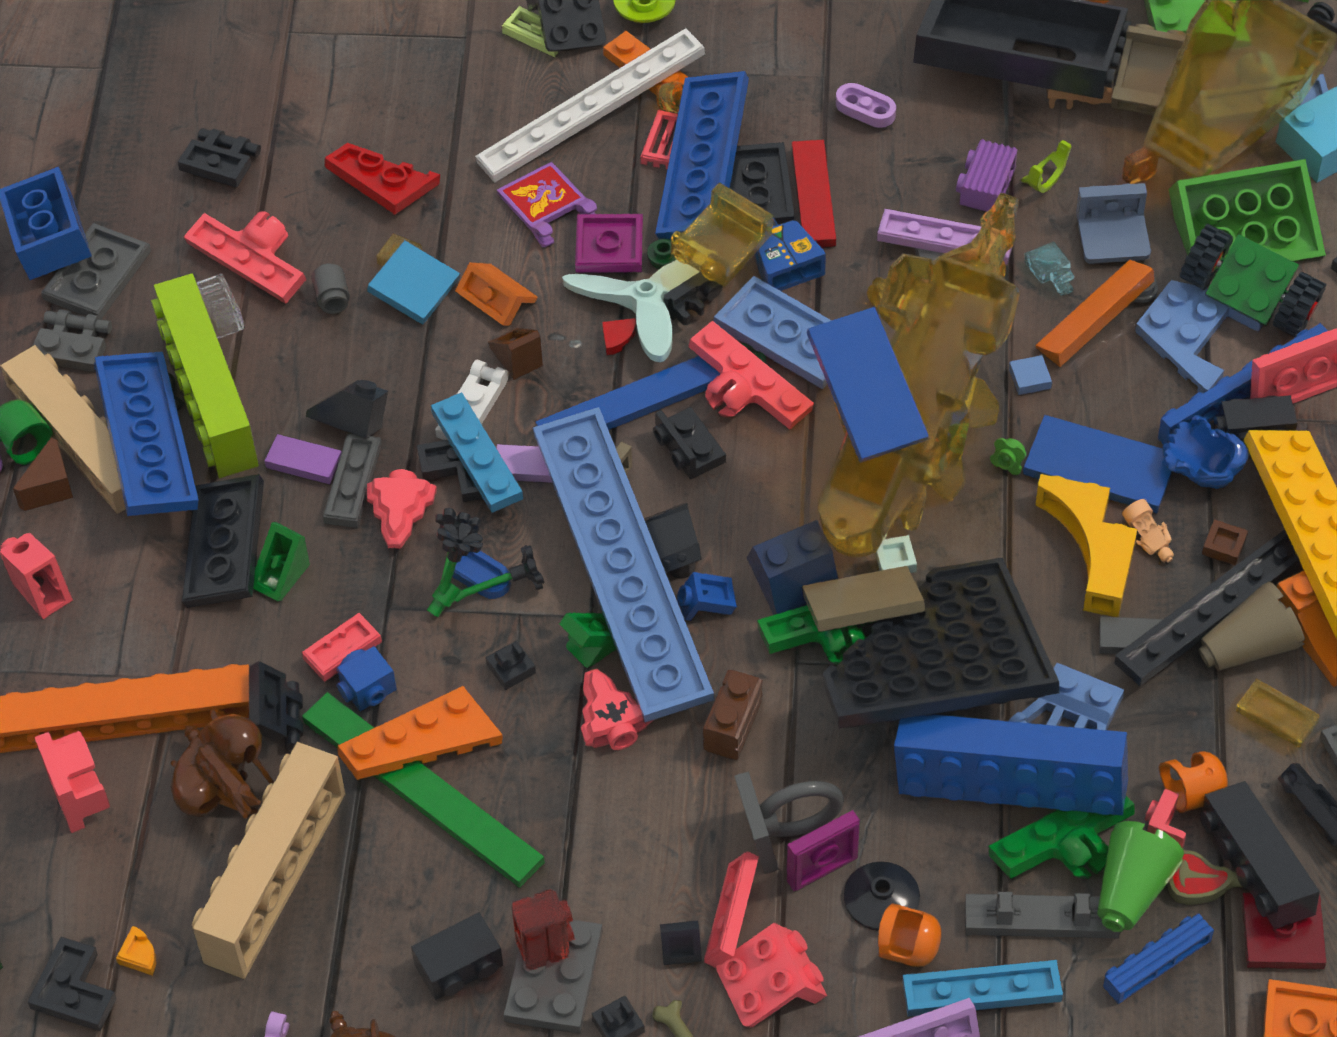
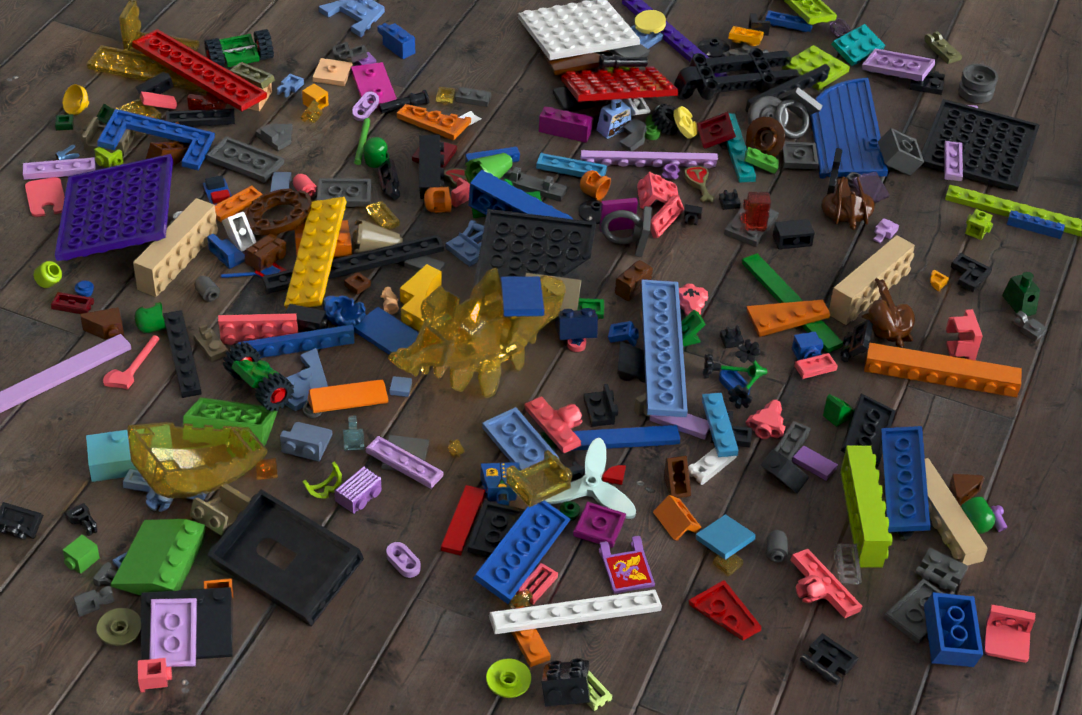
camera: 165 degrees left, 10 degrees down
(29, 559) = (976, 436): coral torso -> none

